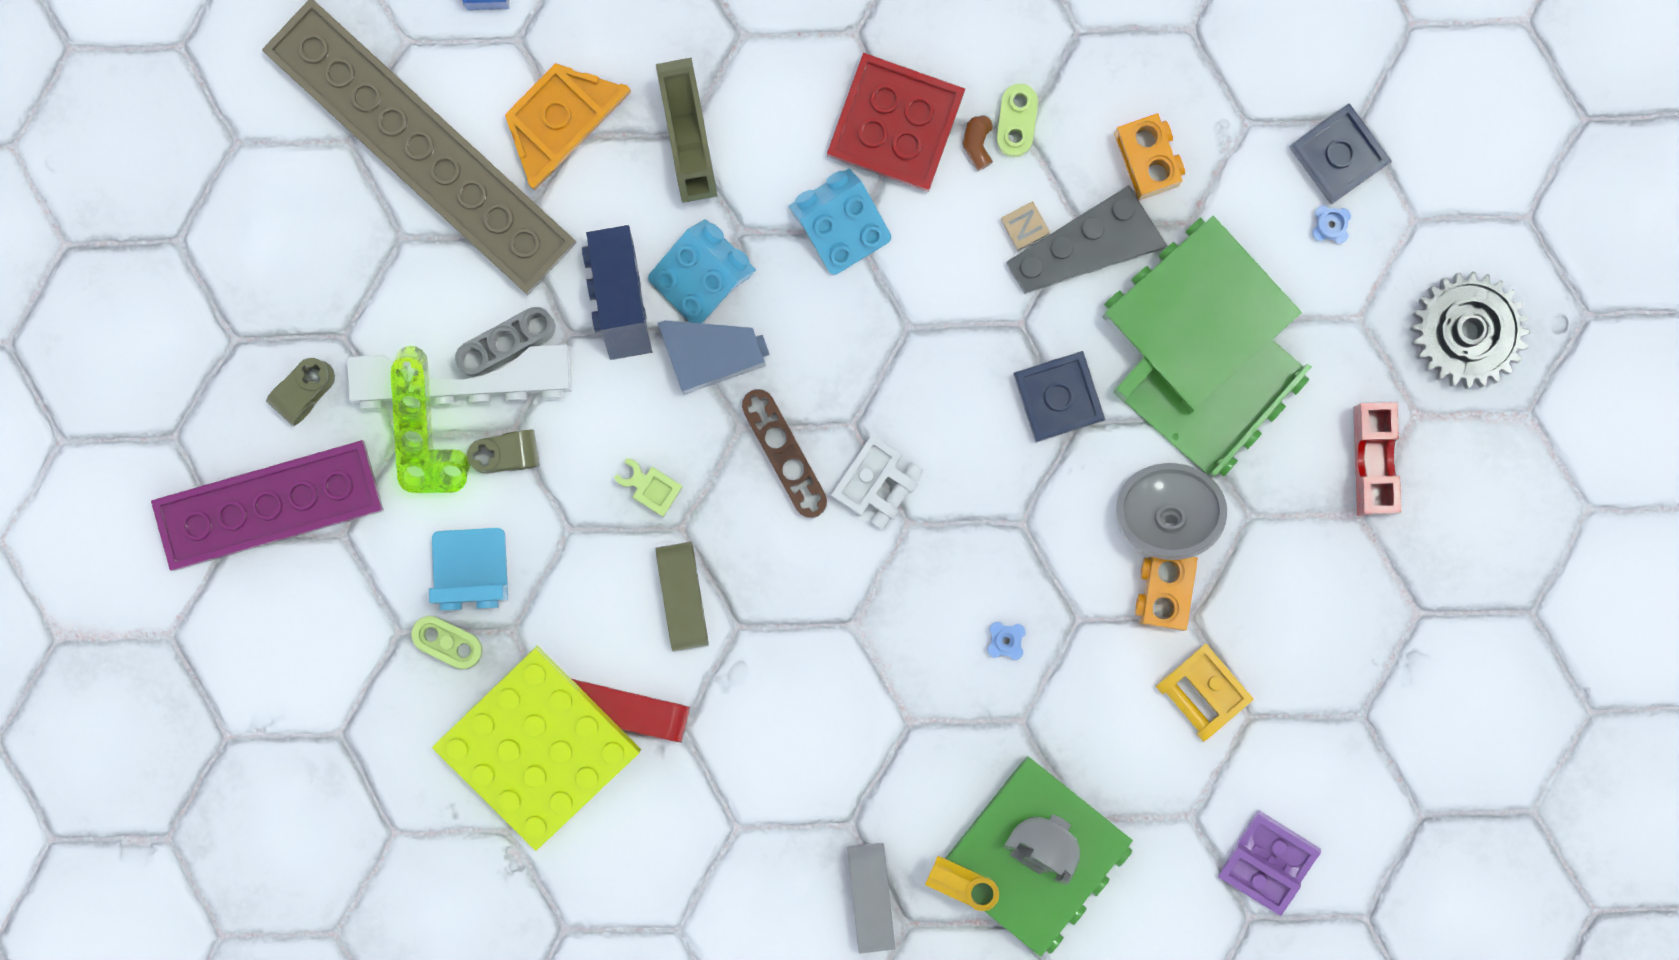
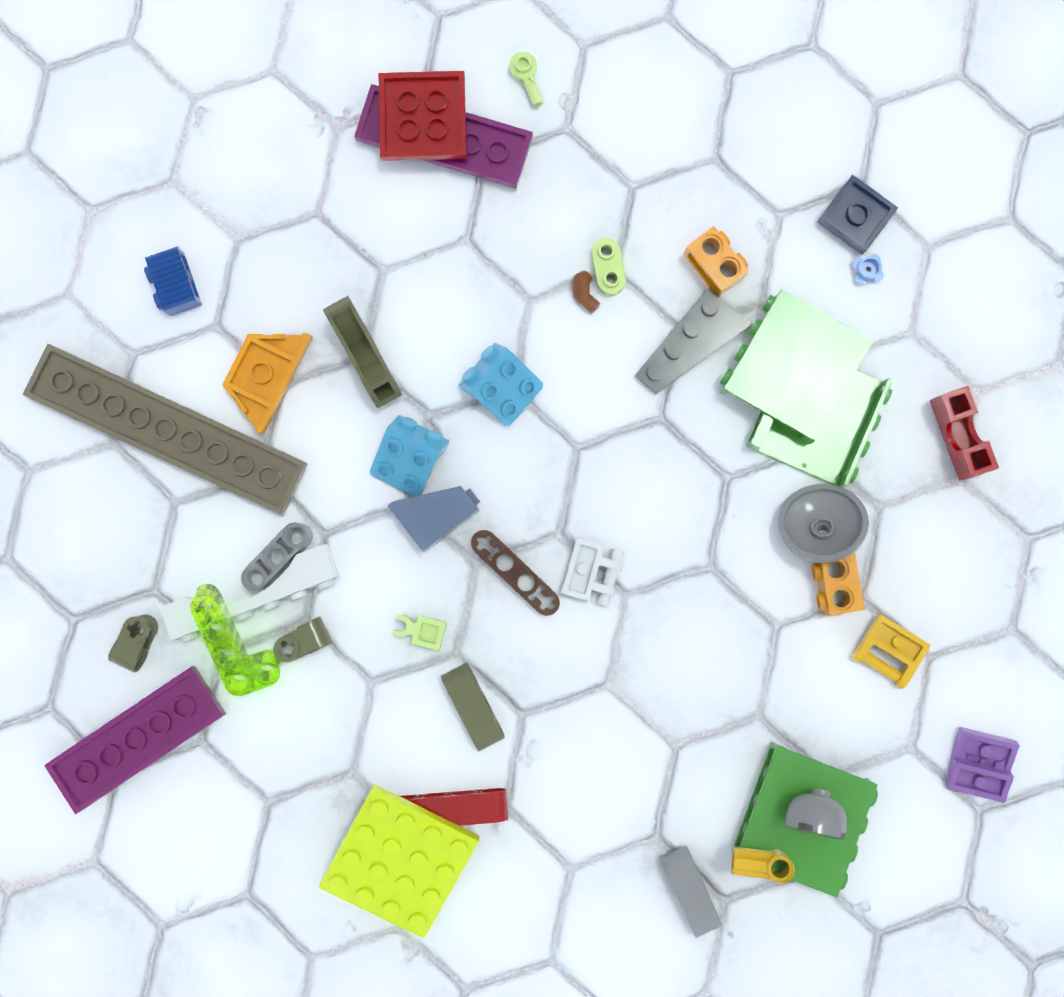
camera: 15 degrees left, 0 degrees up
(447, 643) = (306, 800): yellowish green plate -> none
(469, 568) = (304, 738): medium azure bracket -> none
(617, 292) = (349, 491): dark blue wedge -> none
(895, 122) = (518, 296): red plate -> none
(997, 646) = (724, 667): light blue plate -> none
(1025, 226) = (640, 343): tan tile -> none
(1059, 396) = (708, 463): dark blue plate -> none
(1496, 324) = (1015, 302): gear -> none

